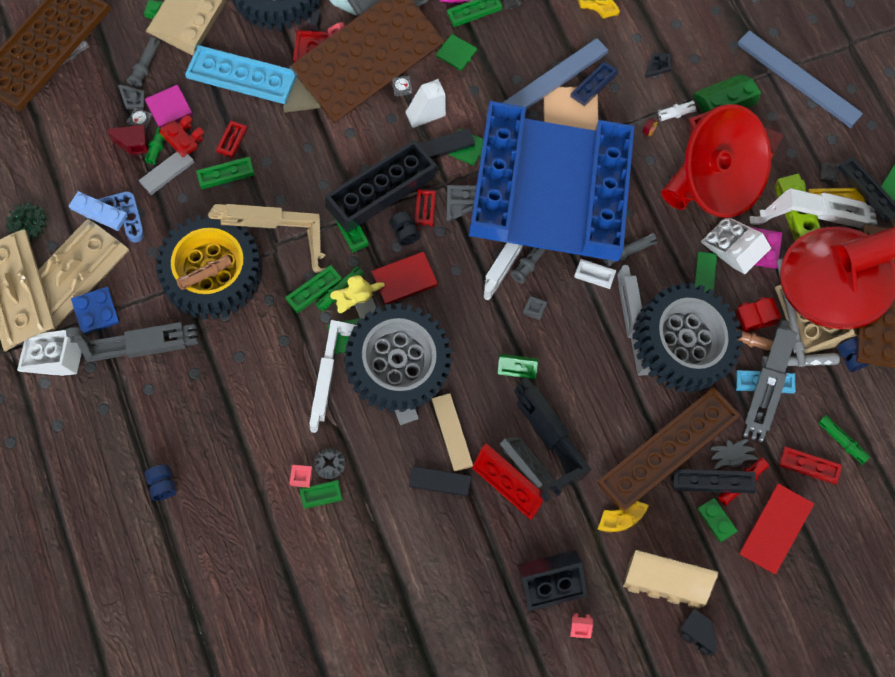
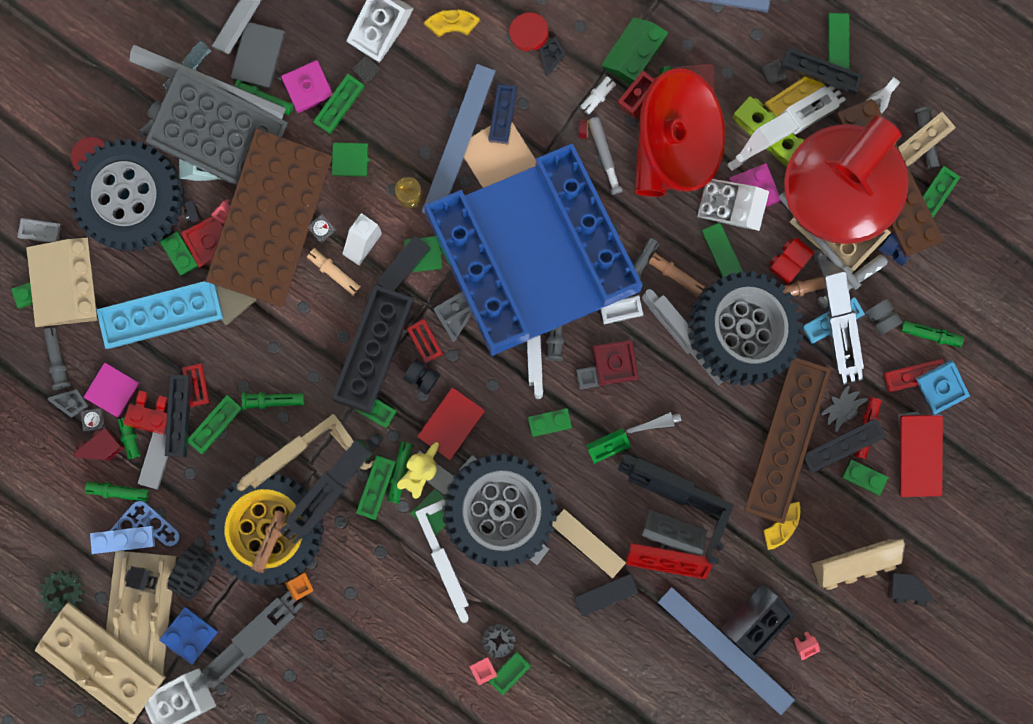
camera: 30 degrees left, 15 degrees up
(91, 244) = (142, 579): none -> black slope
(114, 172) = (108, 490): none -> green pin
(130, 261) = (191, 572): none -> black tyre
(202, 149) = (178, 416): none -> black plate
(203, 325) = (299, 586): none -> orange plate
(273, 177) = (262, 401): none -> green pin
(276, 256) = (329, 488): none -> black hinge
(285, 44) = (179, 254): none -> green plate
(388, 114) = (327, 266): none -> light nougat pin
(482, 323) = (549, 422): none -> green plate
(484, 92) = (408, 192): none -> clear yellow wheel
(510, 589) = (726, 651): none -> sand blue tile
(564, 308) = (615, 362): none -> dark red tile
(575, 375) = (664, 421): none -> light grey piece
(652, 39) = (529, 31): none -> red tile
(653, 266) = (676, 274): none -> nougat pin
(658, 143) = (601, 144): none -> light grey piece
(810, 401) = (884, 317): none -> dark grey wheel
(828, 486) = (942, 387): none -> dark azure tile

